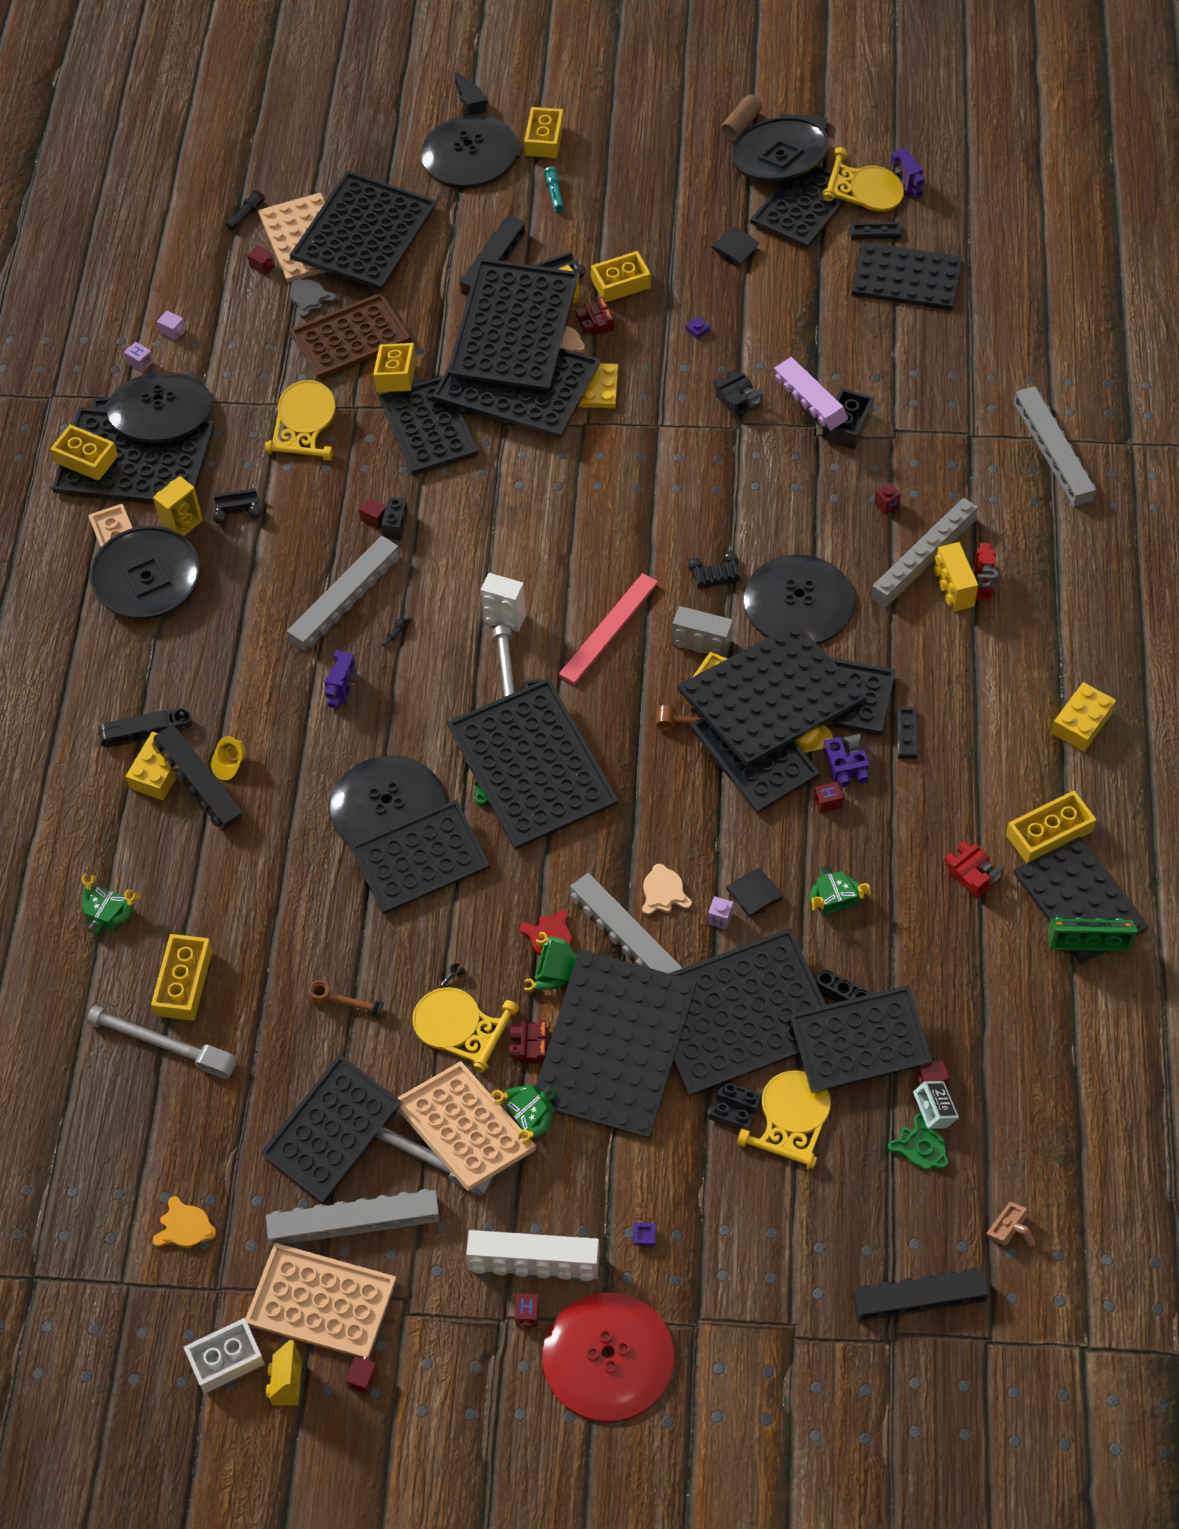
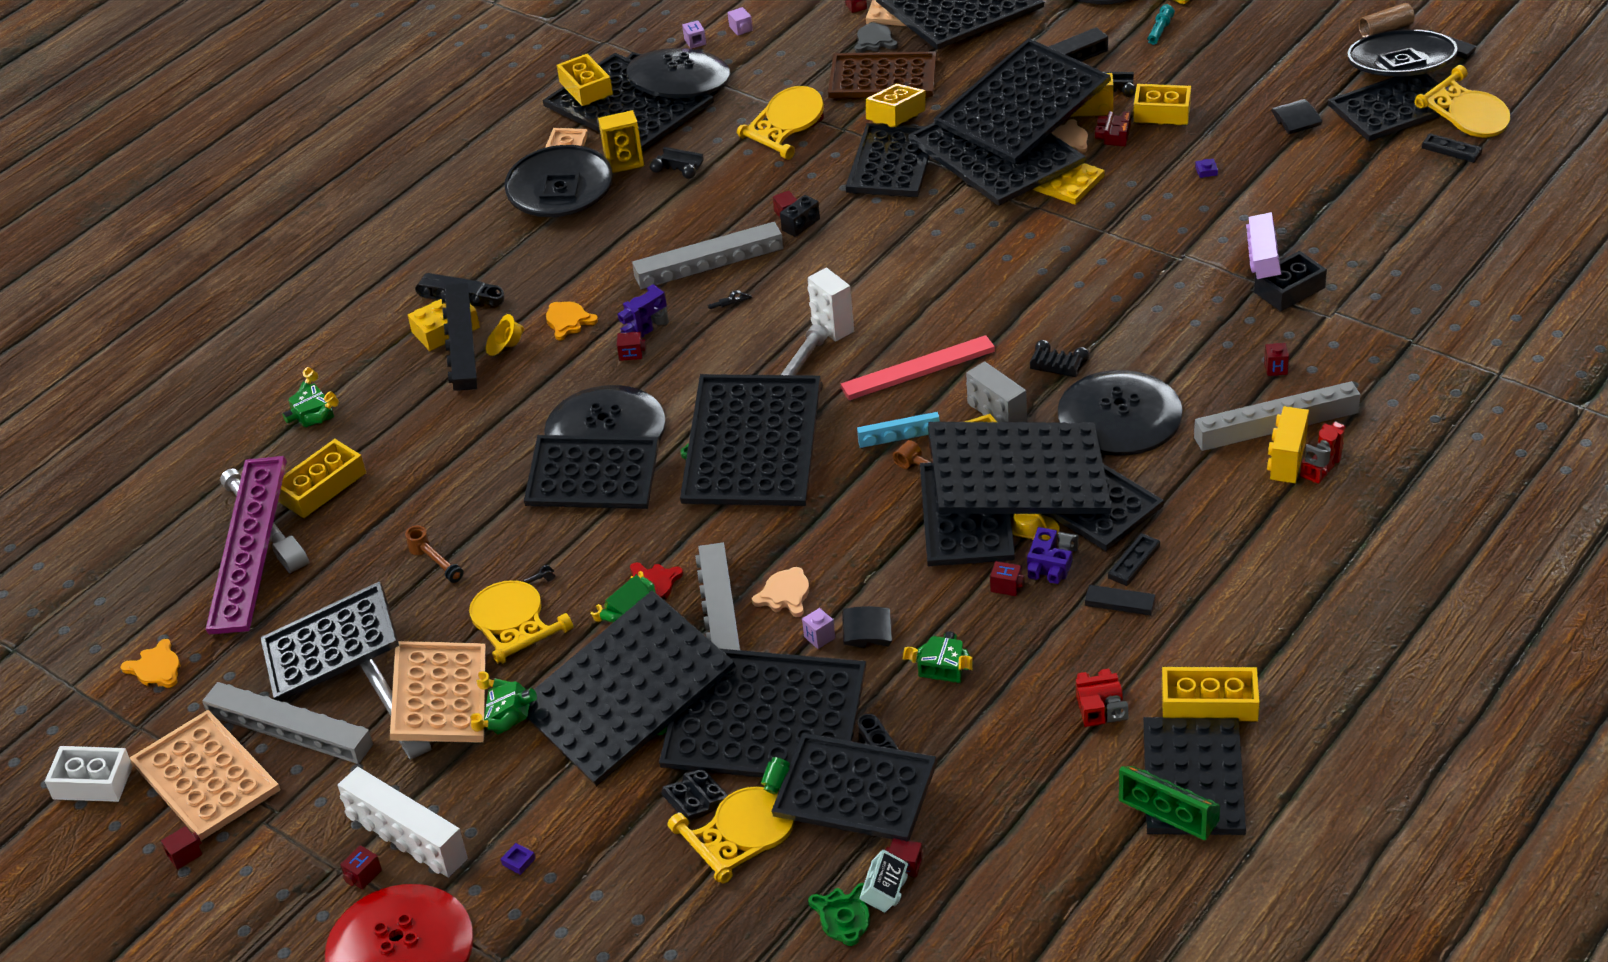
camera: 35 degrees right, 15 degrees down
(177, 1074) = (246, 546): none -> magenta plate
(265, 711) = (568, 318): none -> light orange tile
(285, 1376) = (118, 811): yellow slope -> none
(349, 716) = (630, 346): none -> dark red brick
(533, 1042) = (556, 653): dark red hips -> none
(640, 698) = (895, 430): none -> medium azure plate
(737, 391) = (1197, 222): black hips -> none
(791, 1059) = (775, 774): none -> green brick
(907, 276) = (1454, 193): black plate -> none
(909, 172) = (1521, 107): dark purple hips -> none
(923, 774) = (1120, 600): none -> black tile
(1054, 446) = (1492, 378): light grey brick -> none
(1083, 716) = (1328, 615): yellow brick -> none

